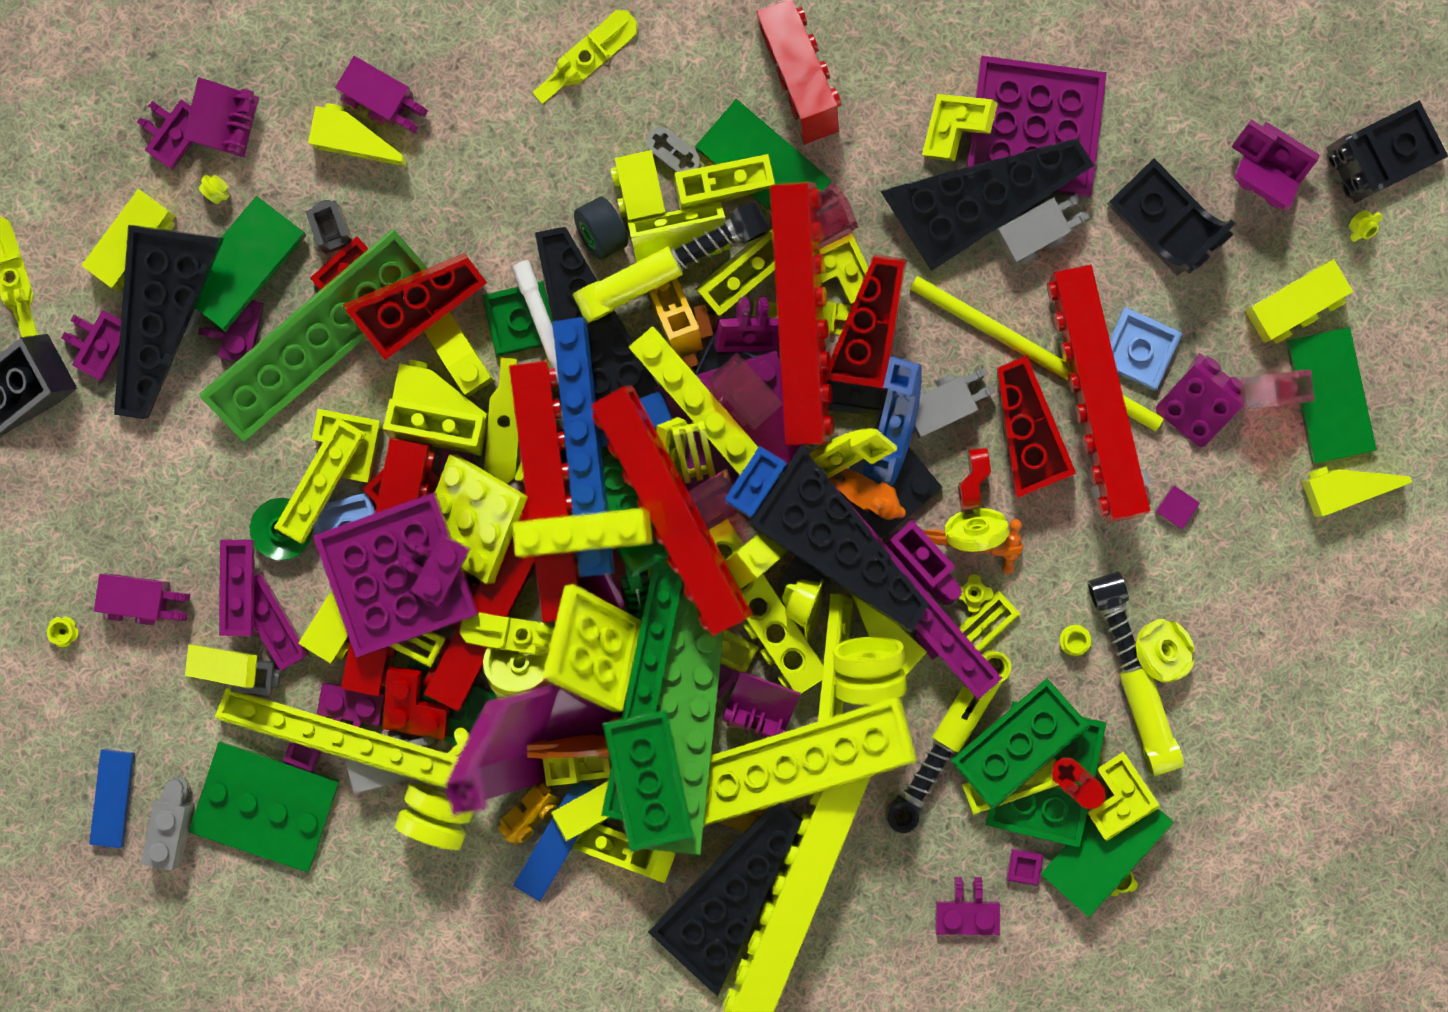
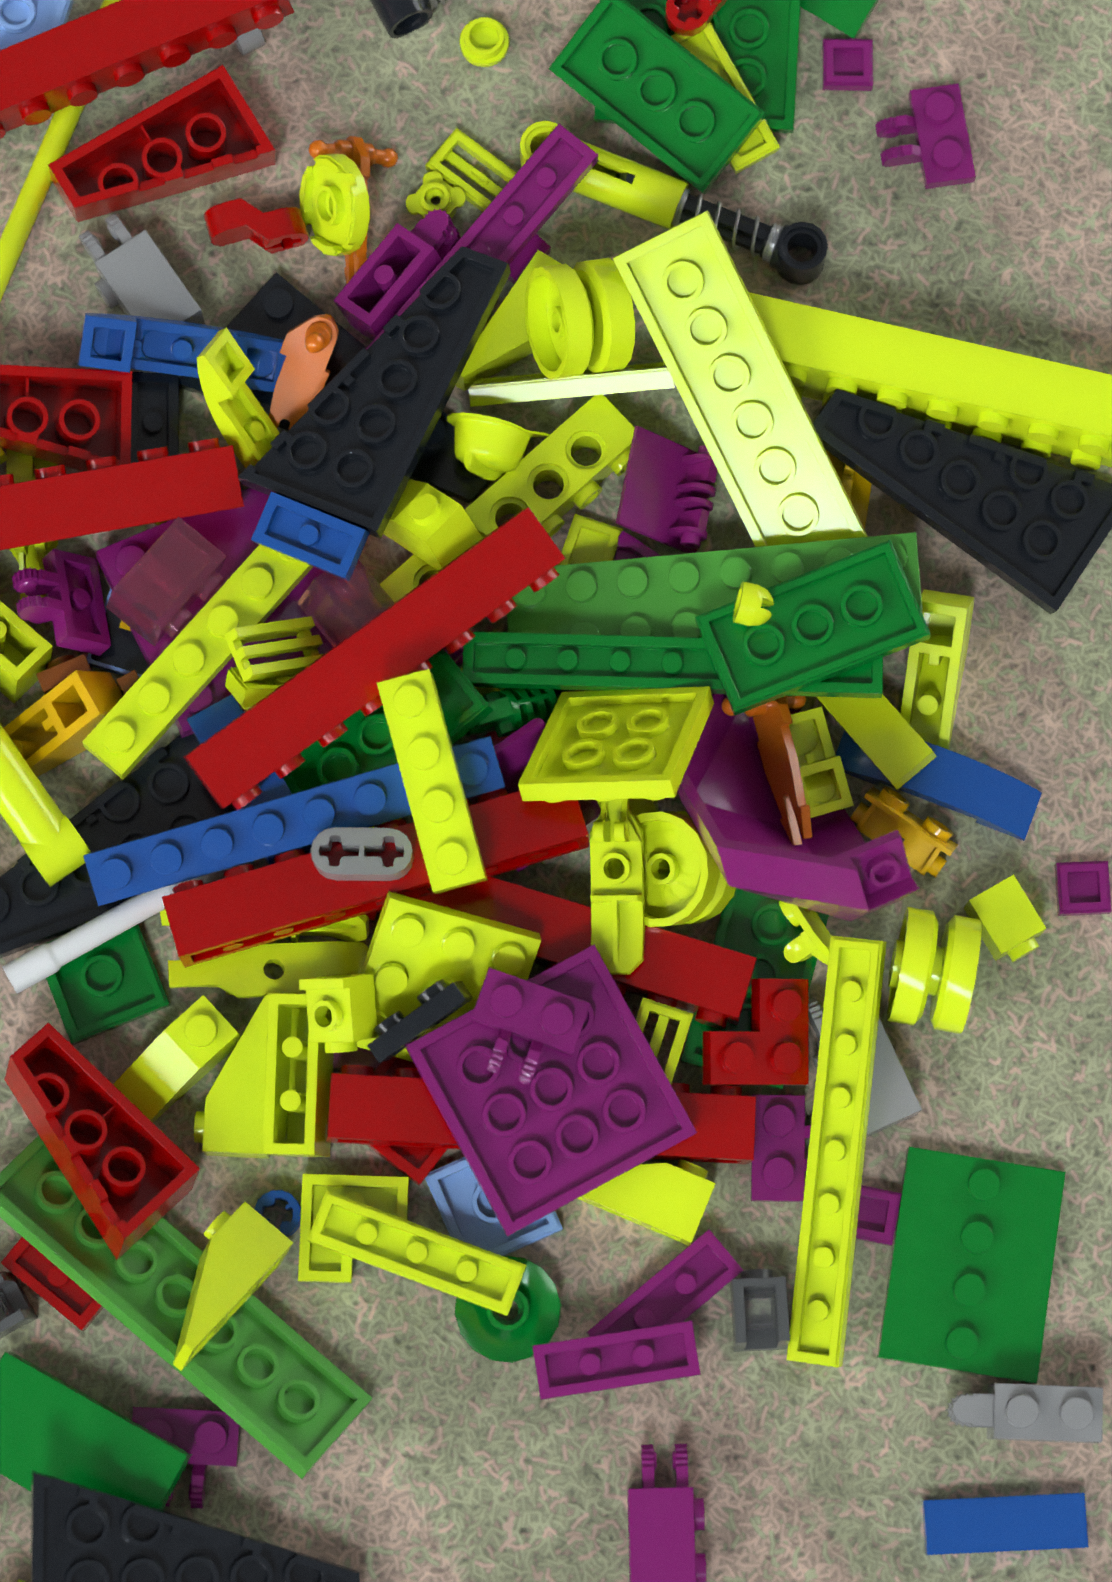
camera: 105 degrees left, 10 degrees down
(221, 665) = (750, 1364): neon yellow tile -> none
(324, 367) = (232, 1267): none -> neon yellow slope
(352, 407) = (269, 1201): none -> blue bush
(453, 514) = (436, 1005): none -> black plate
(462, 457) = (340, 1010): none -> neon yellow brick
(462, 865) = (1006, 920): none -> neon yellow brick
(477, 915) = (1082, 888): none -> magenta tile
(543, 483) = (362, 866): none -> light grey beam
(665, 744) = (749, 603): none -> neon yellow hinge

